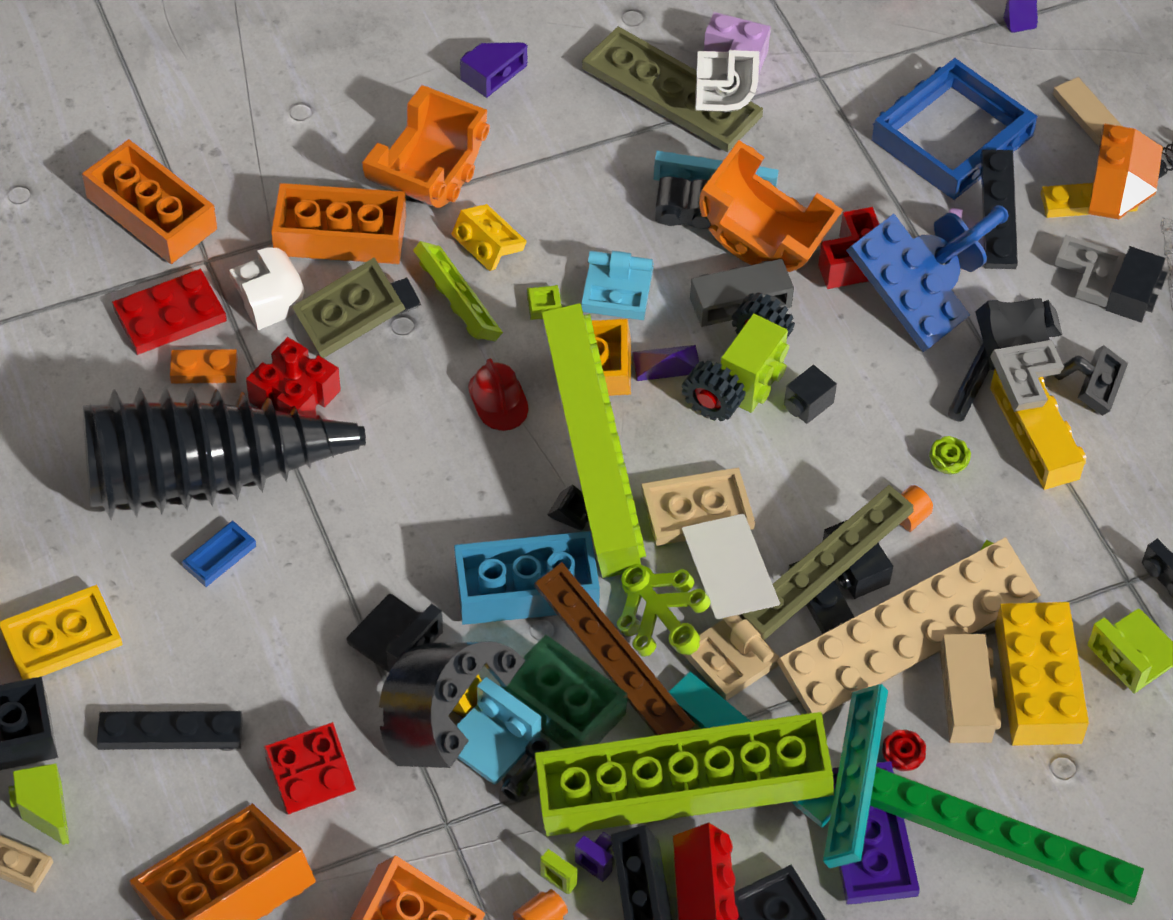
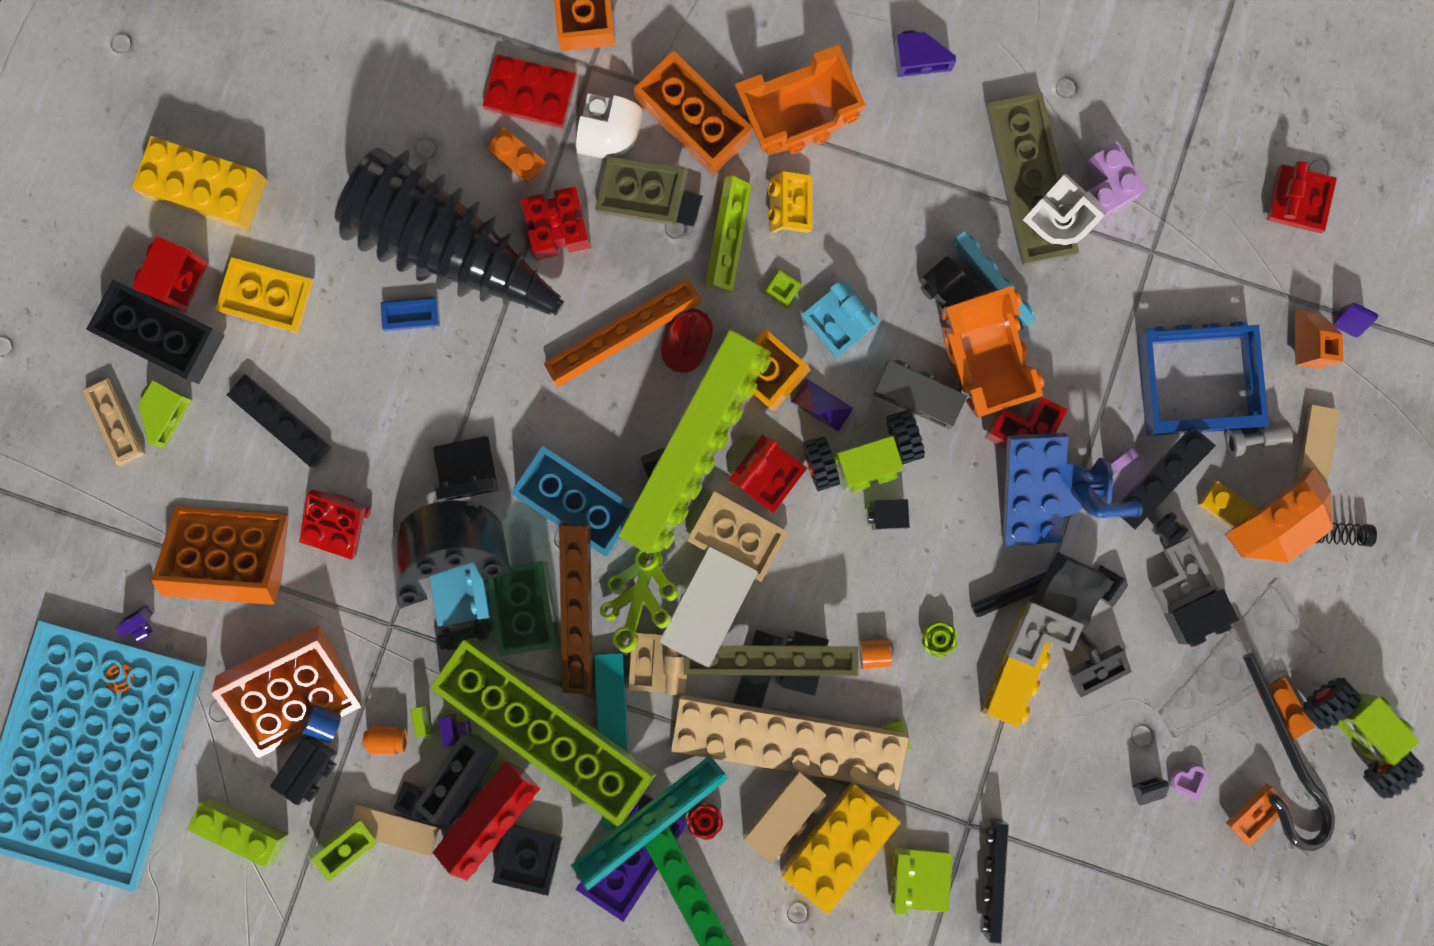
camera: 45 degrees right, 30 degrees up
(435, 427) = (622, 332): none -> orange plate
(673, 439) = (767, 473): none -> red plate
(1010, 43) = (1316, 341): none -> orange slope
(1044, 242) = (1170, 529): none -> black wheel
(1049, 125) = (1274, 435): none -> light grey piece

